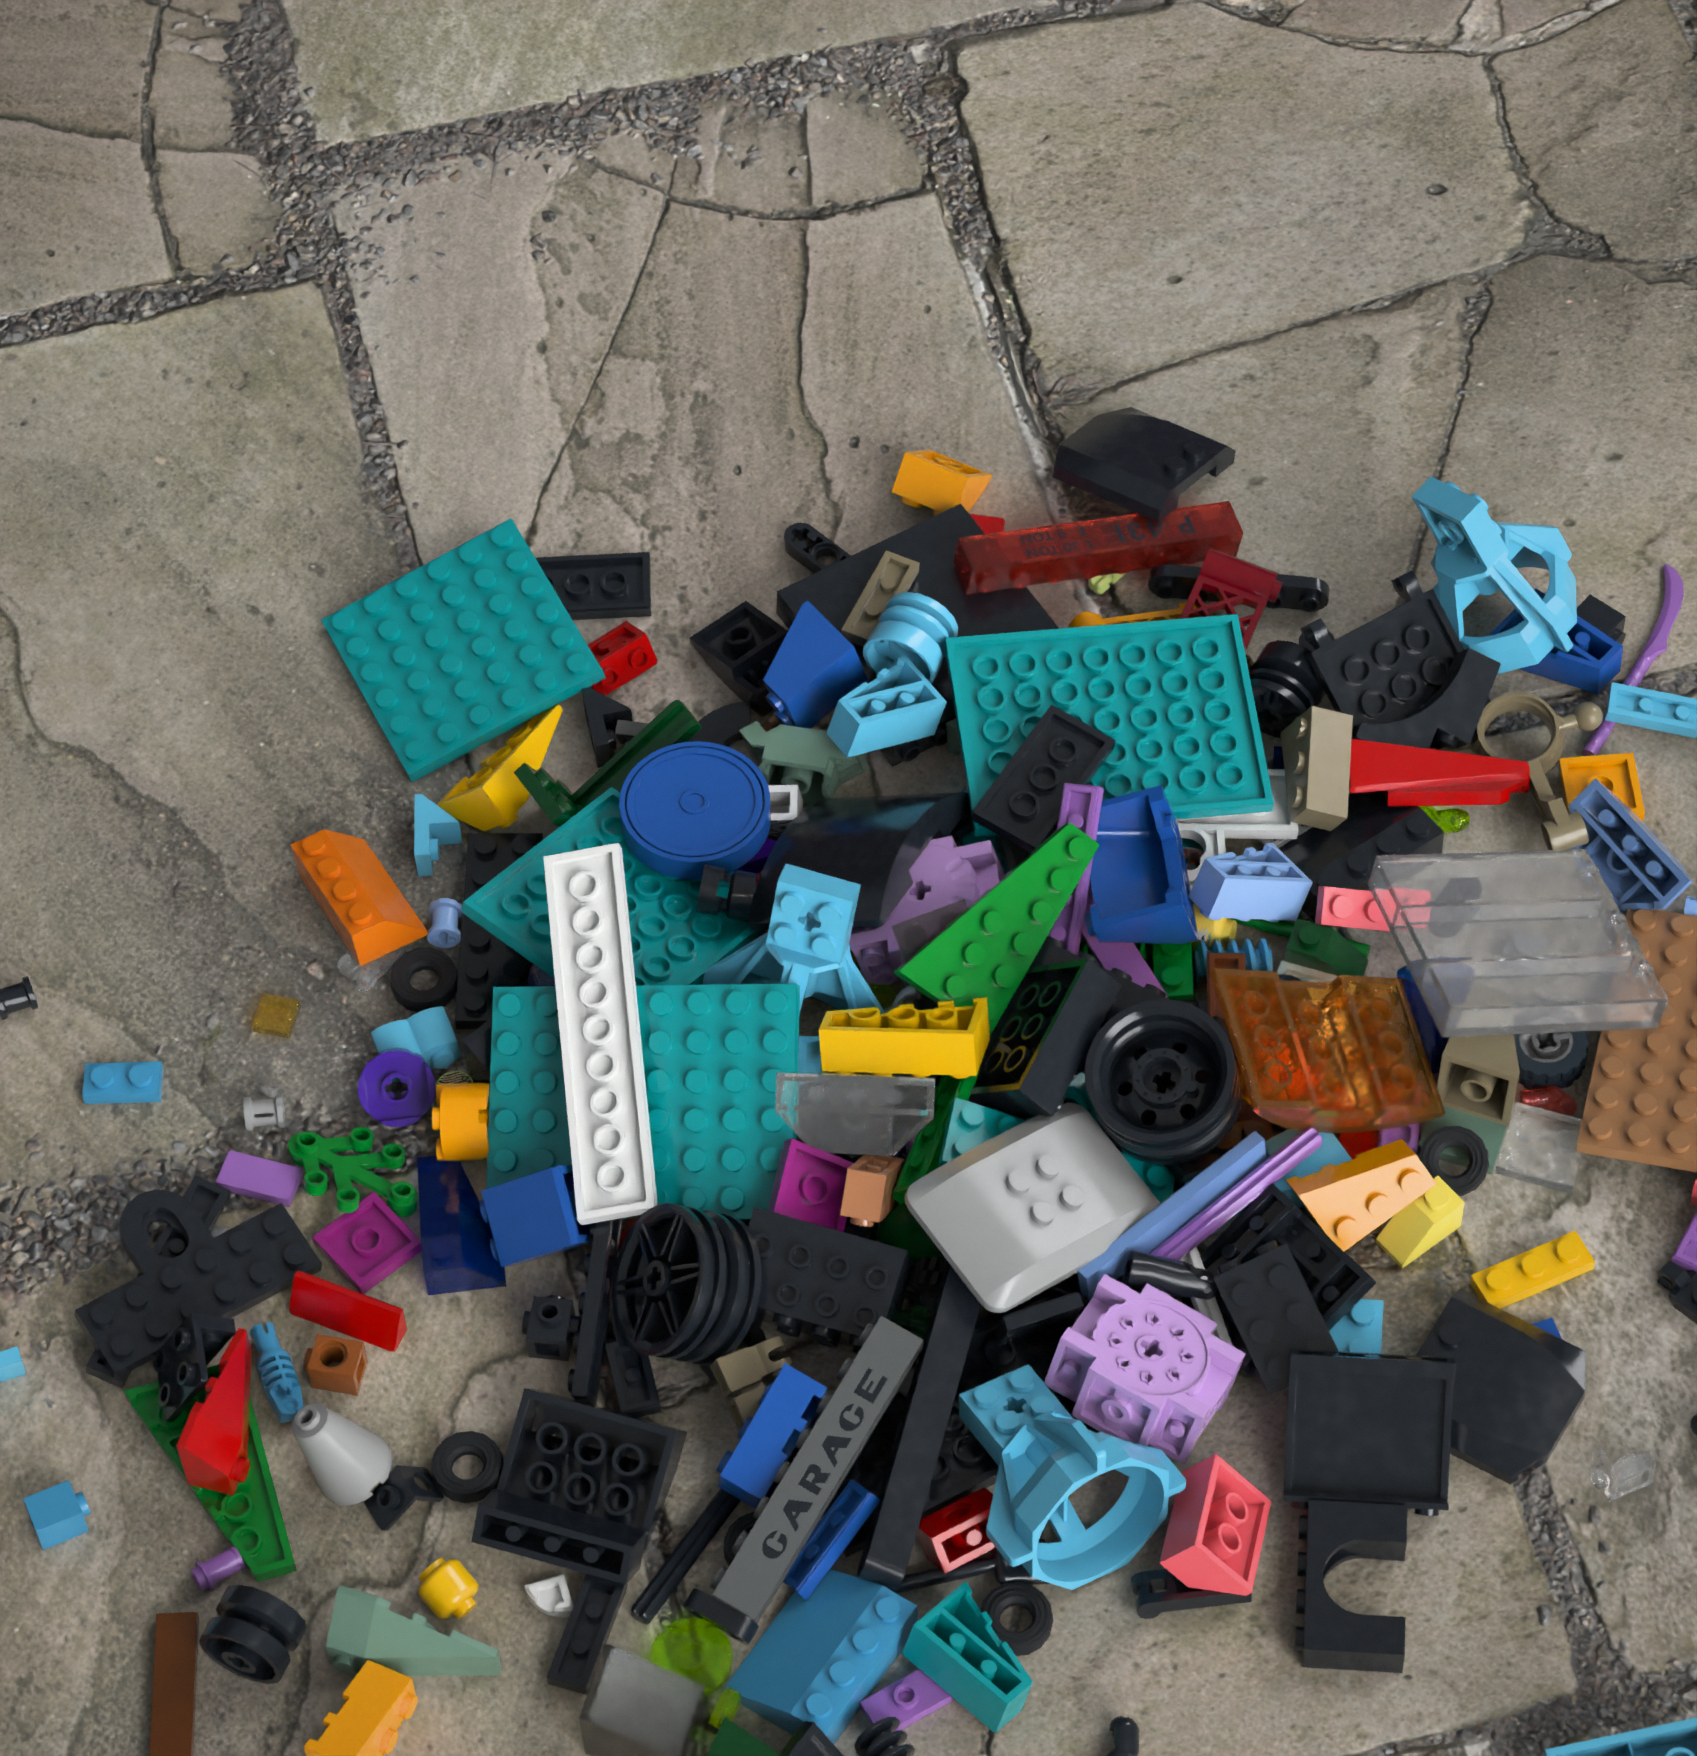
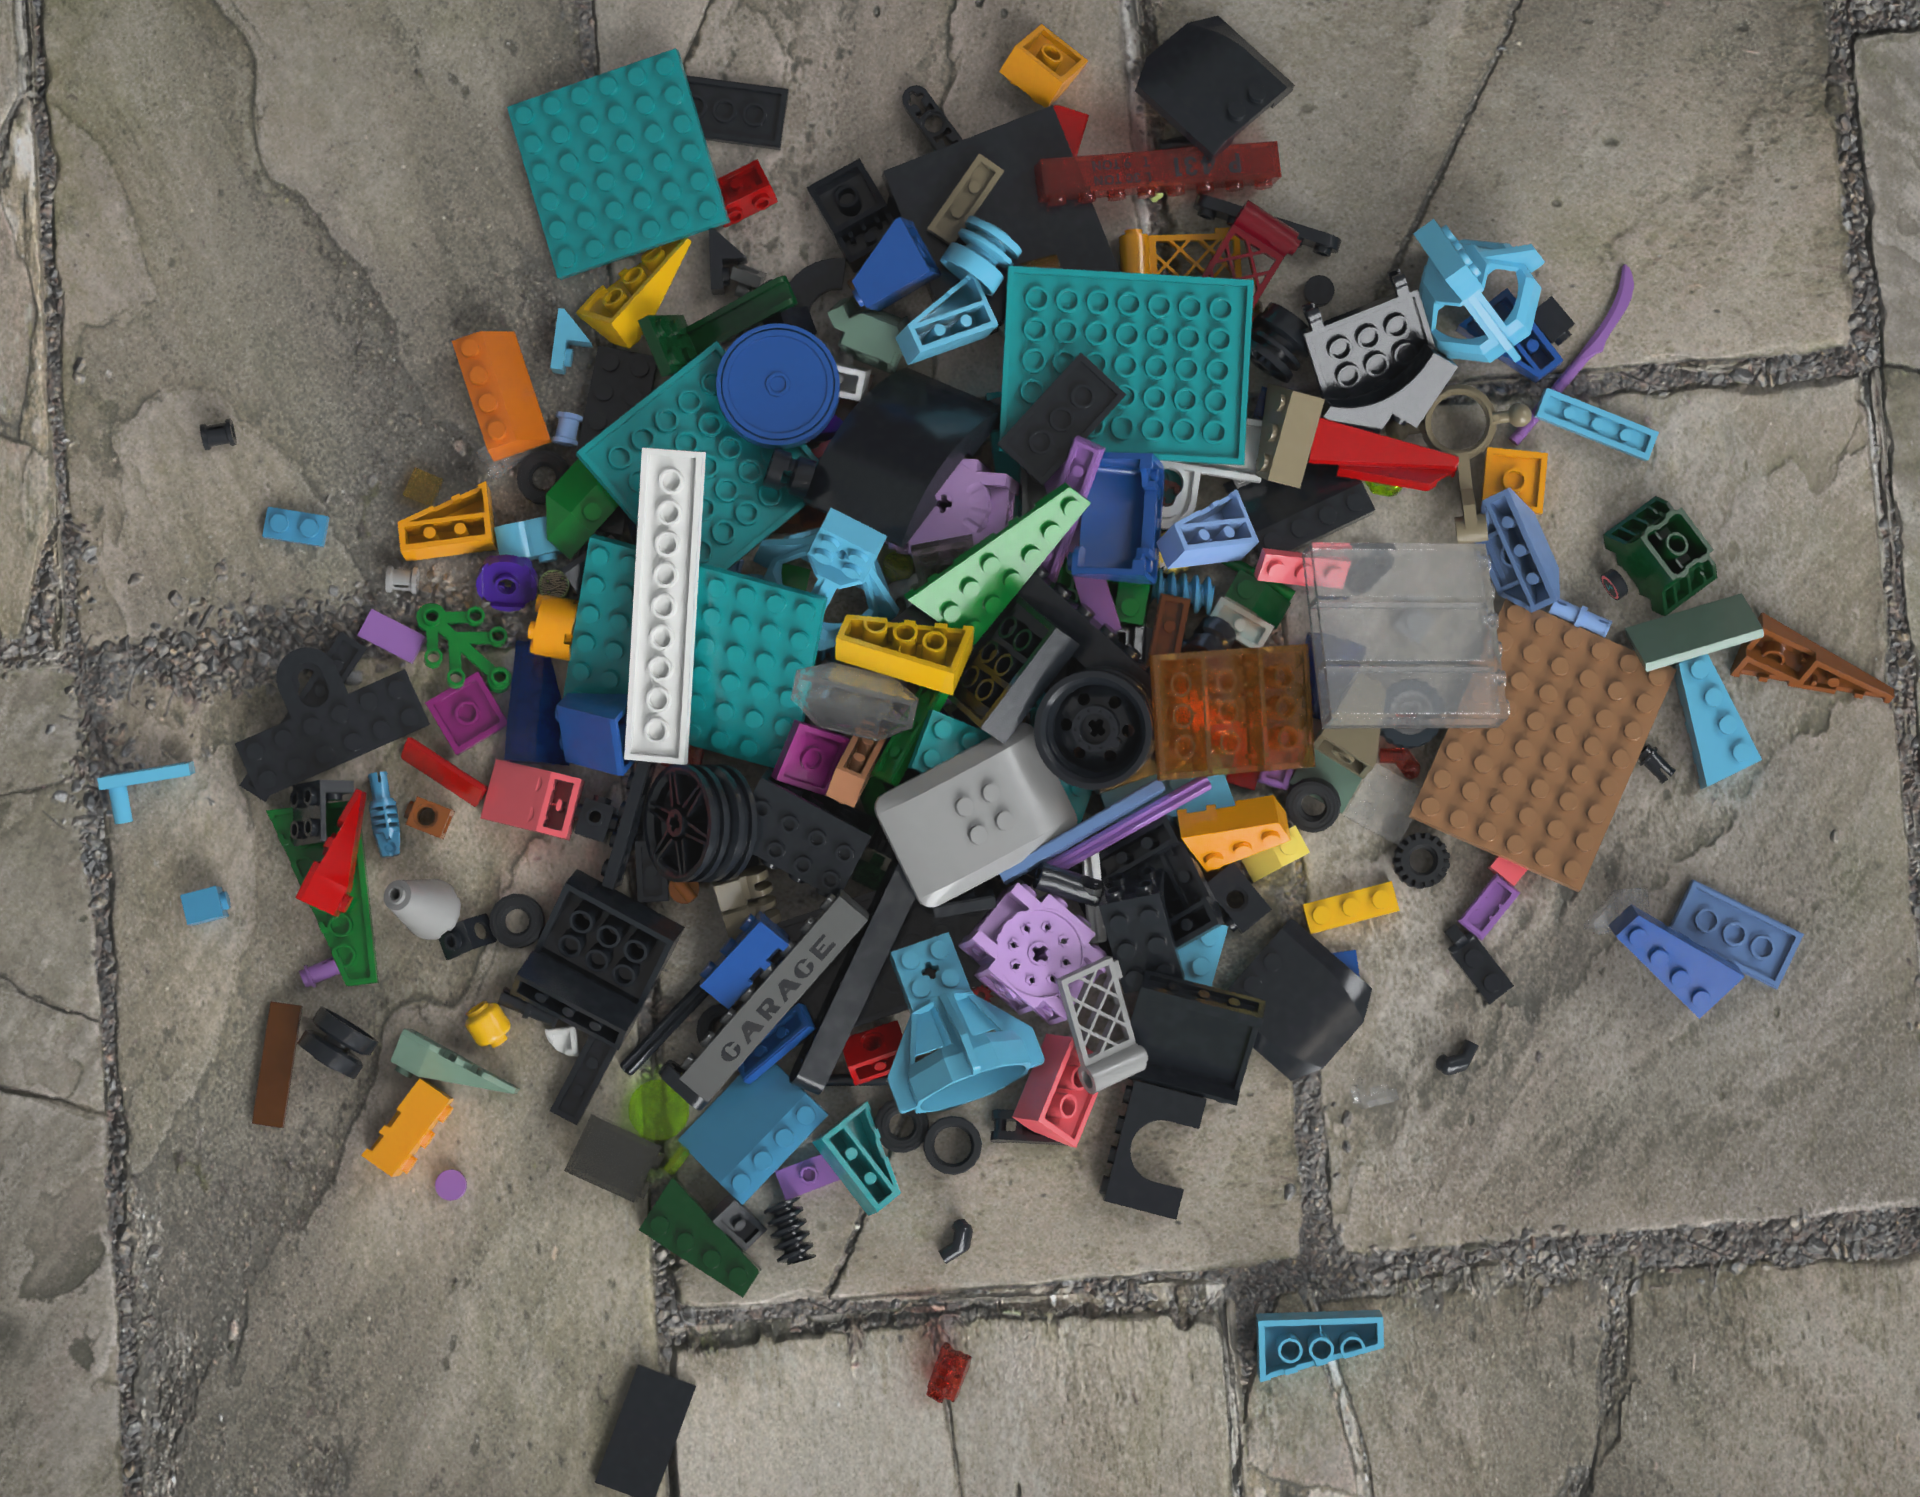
camera: 10 degrees right, 30 degrees up
(316, 1043) = (450, 528): none -> light orange wedge
(466, 979) = (576, 509): none -> green wedge
(468, 1319) = (532, 799): none -> coral slope
(499, 1562) = (528, 1010): none -> black pin
(676, 1392) = (684, 891): none -> dark orange plate
(1086, 1599) = (949, 1168): none -> black tyre
(1266, 1477) = (1120, 1058): none -> light grey piece
(1409, 1284) = (1253, 904): none -> black brick
(1602, 1220) = (1407, 873): none -> black tyre

